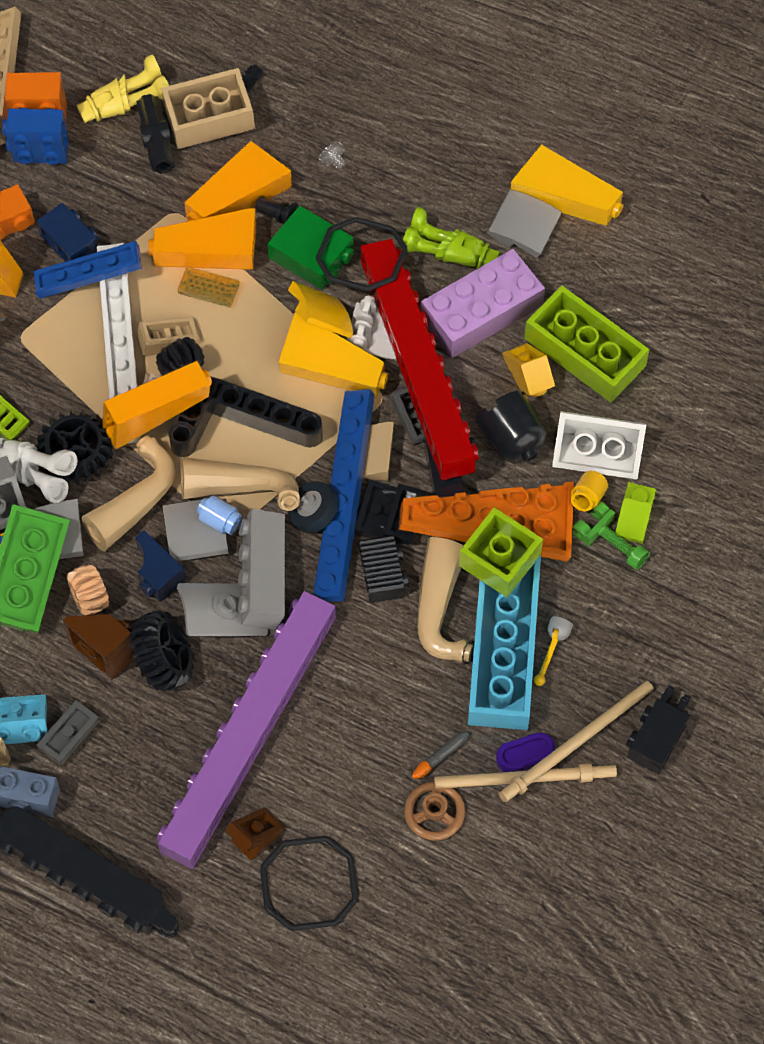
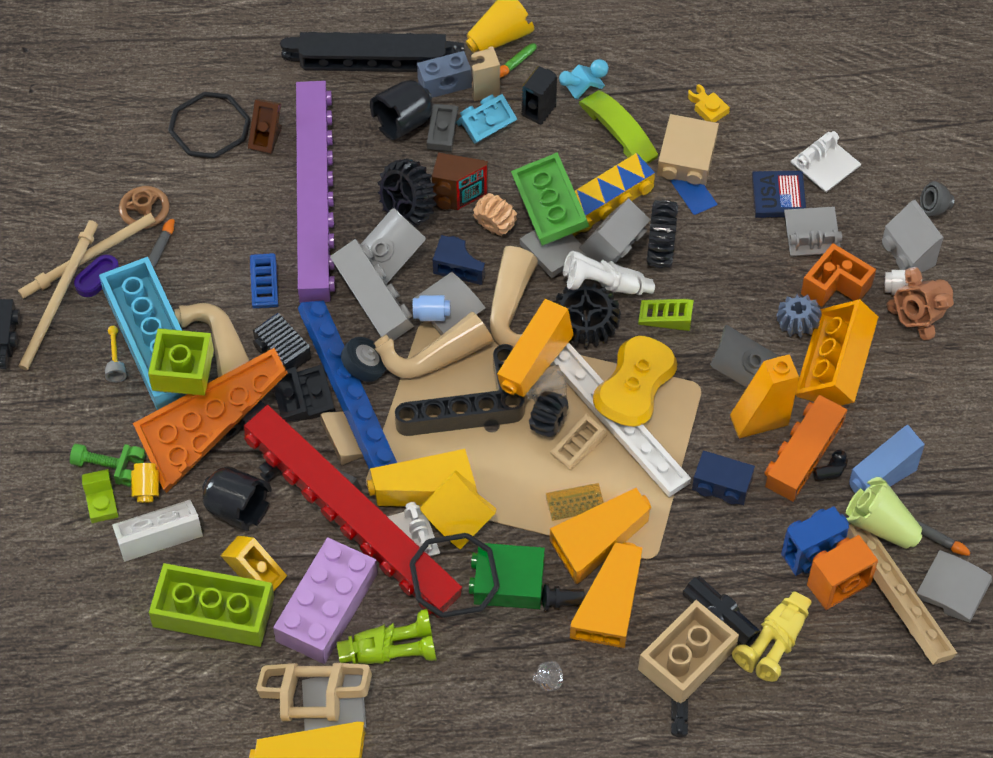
camera: 150 degrees right, 5 degrees down
(57, 374) = (631, 389): none -> yellow plate
(87, 269) = (681, 452): blue tile -> none
(96, 765) = (401, 108): none -> black cylinder
(350, 671) = (264, 265): none -> blue slope
(543, 258) = (334, 689): none -> tan bar

